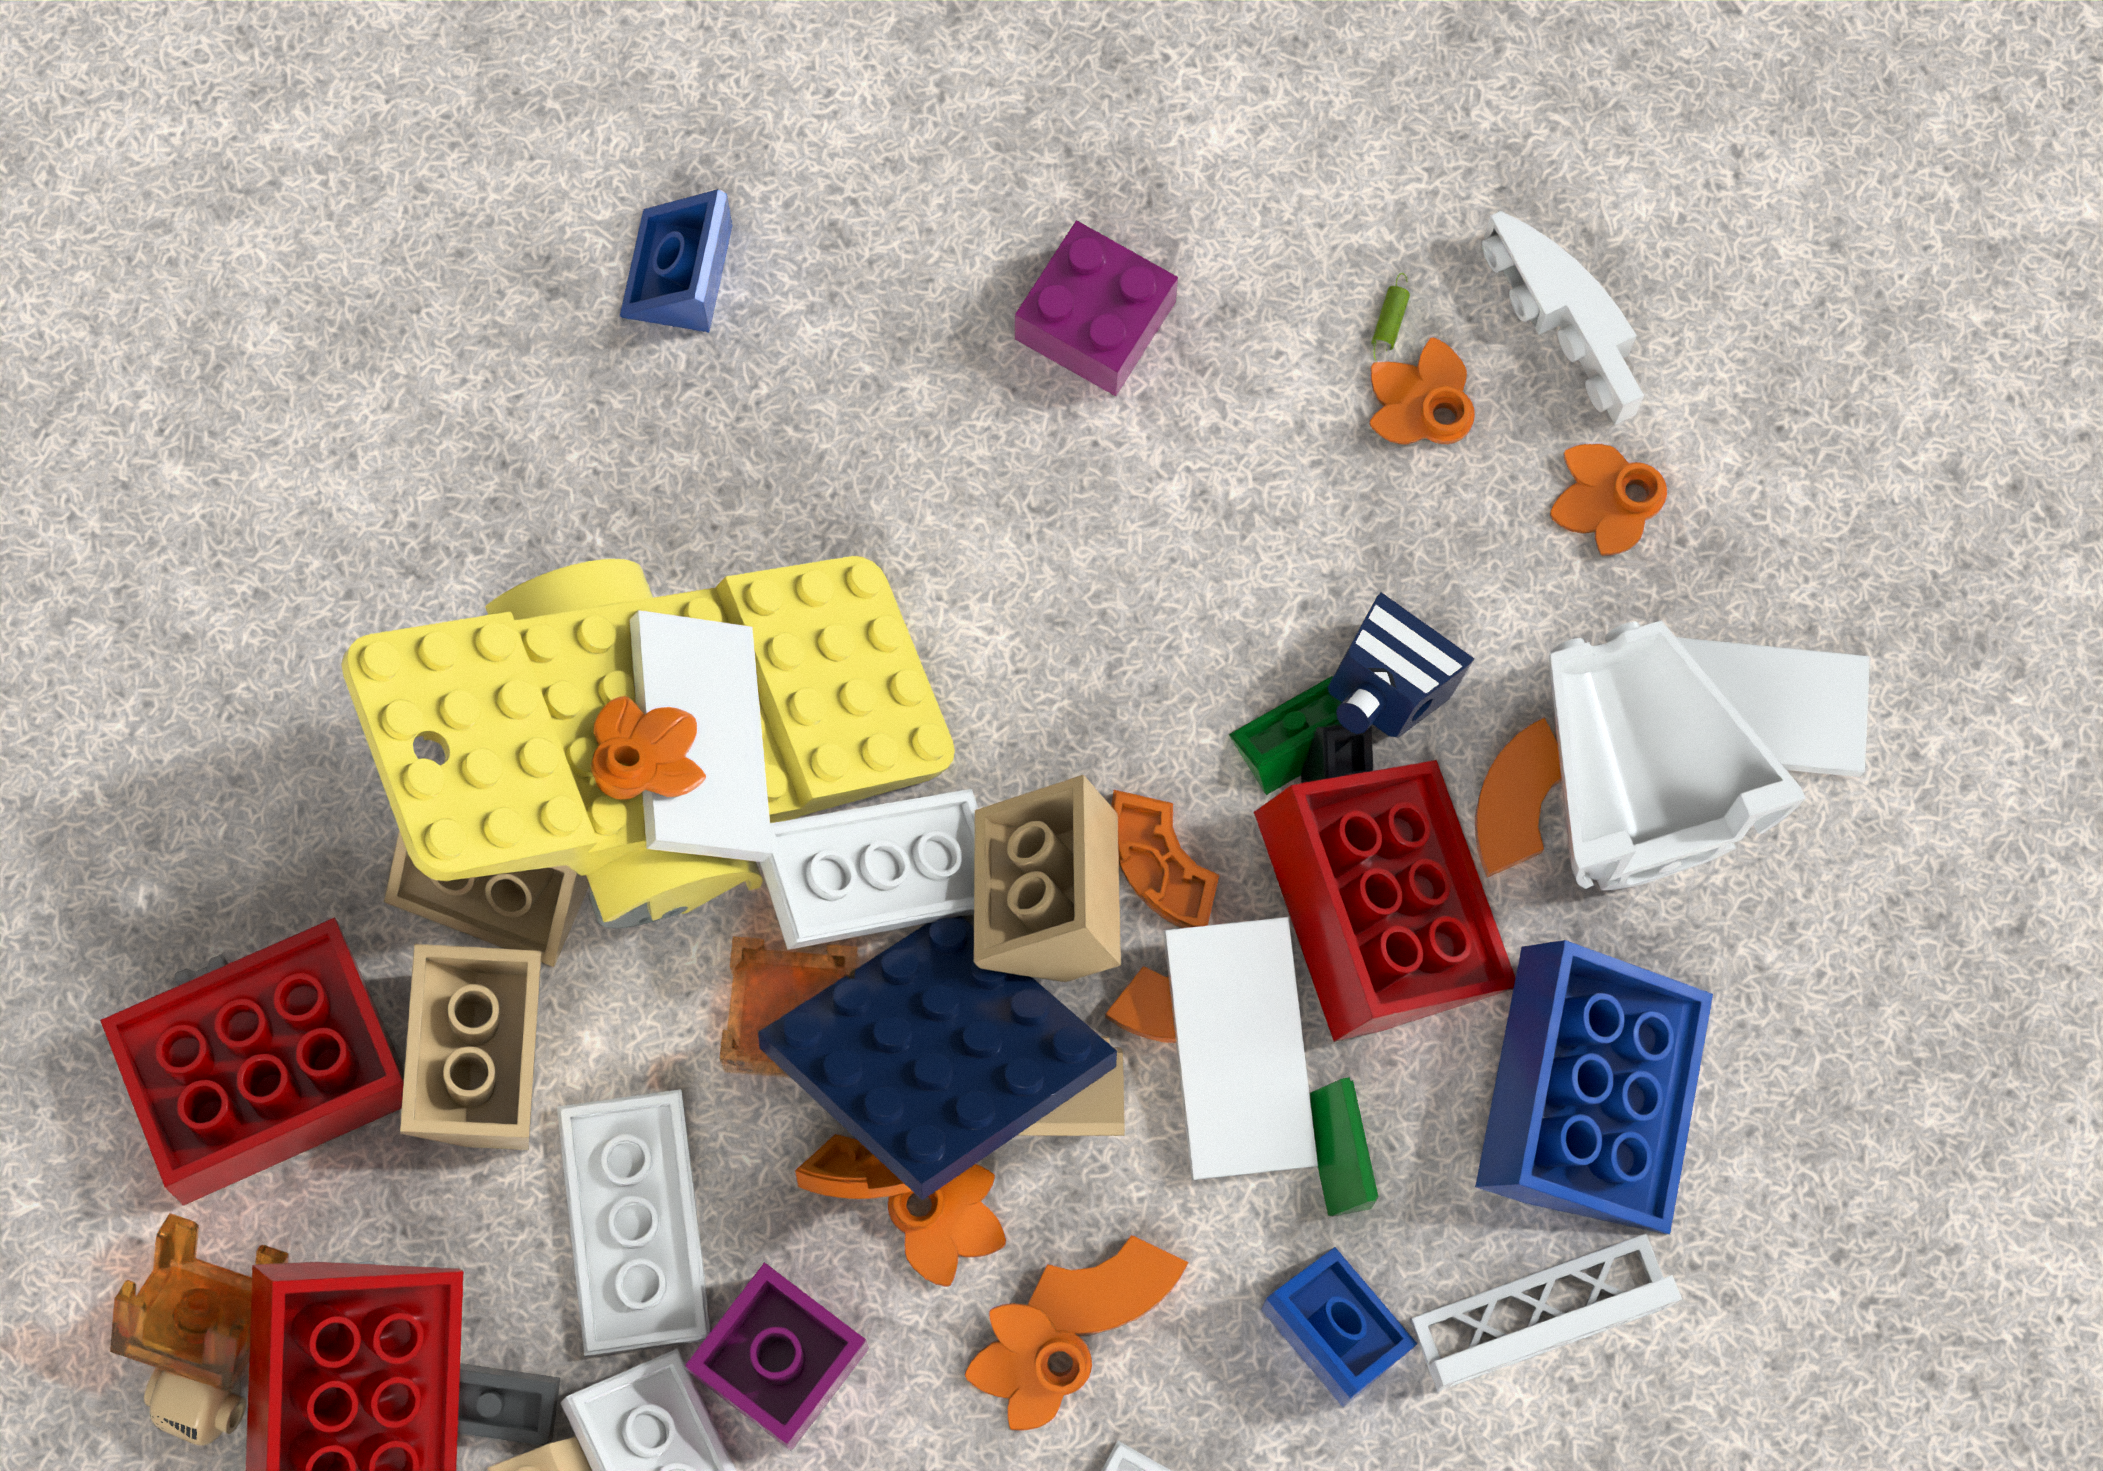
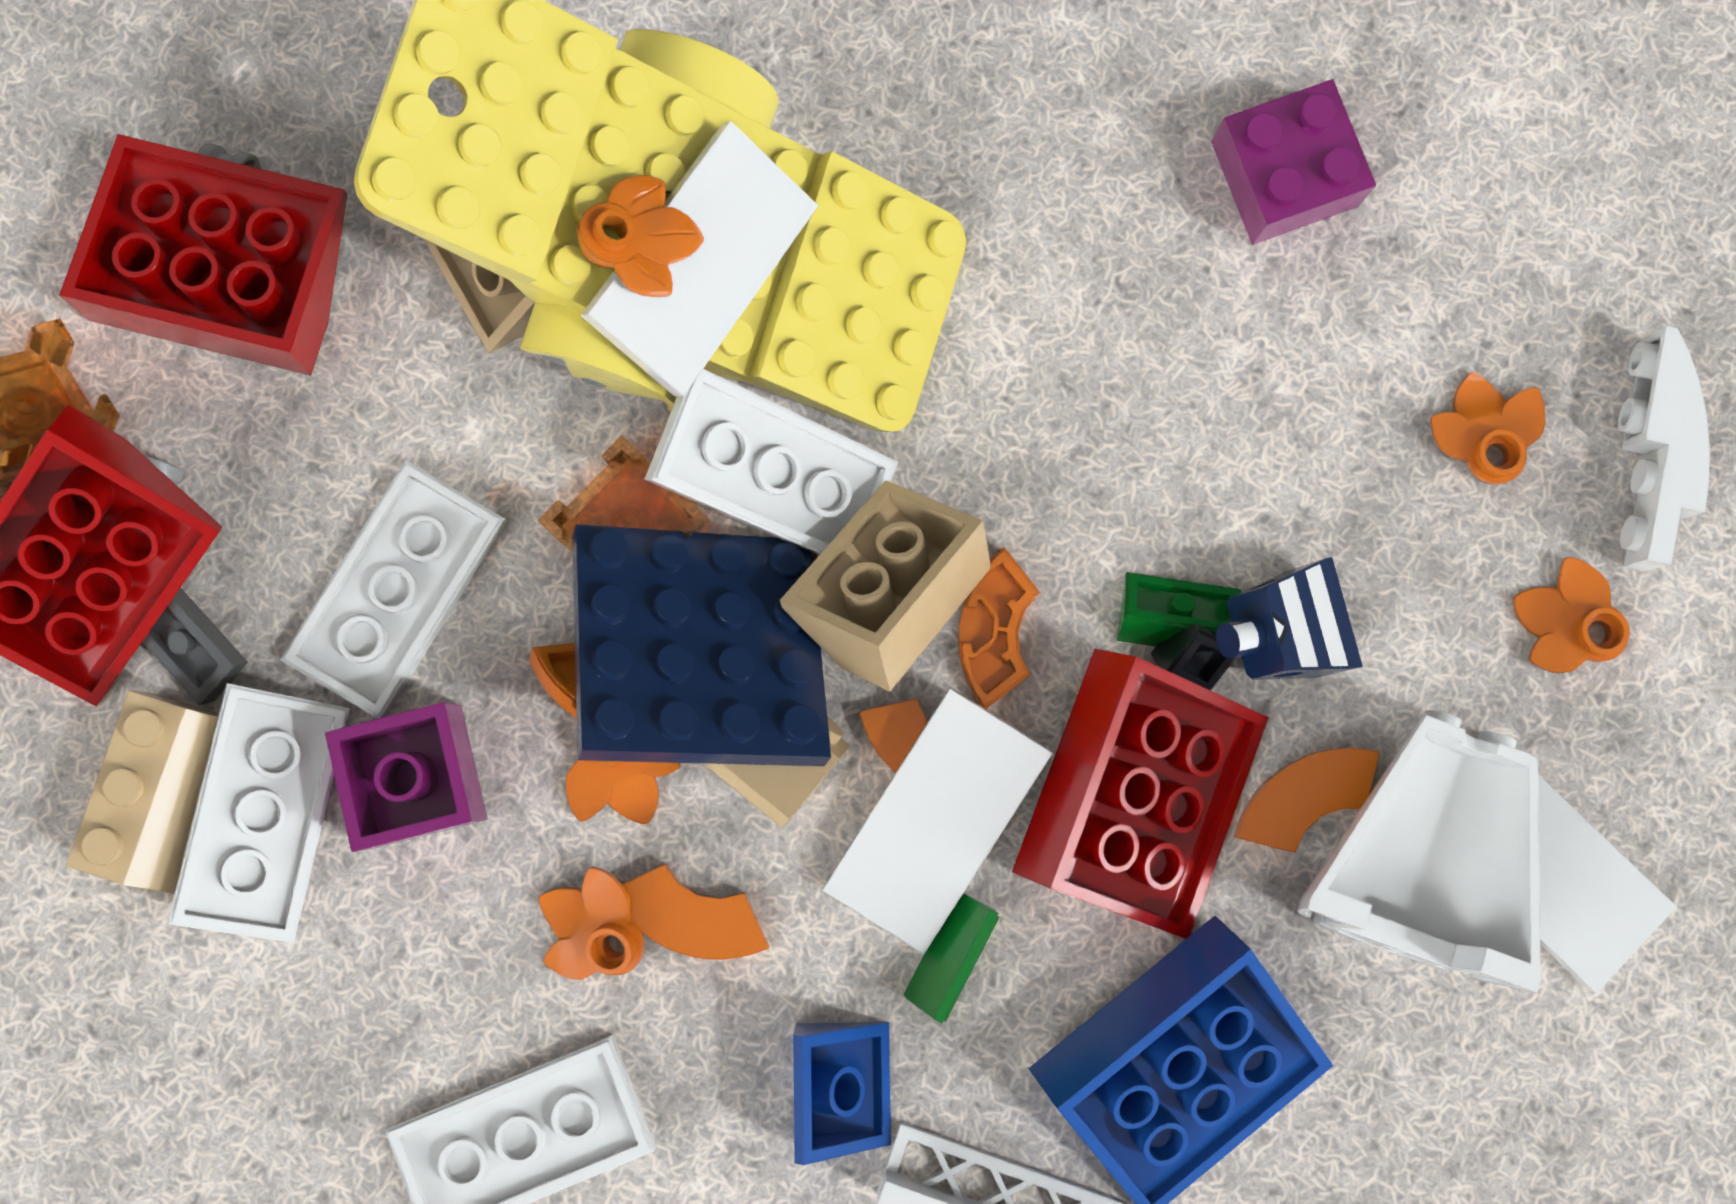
camera: 40 degrees right, 10 degrees up
(471, 1046) = (368, 366): tan slope -> none
(1391, 315) = (1518, 345): lime piece -> none

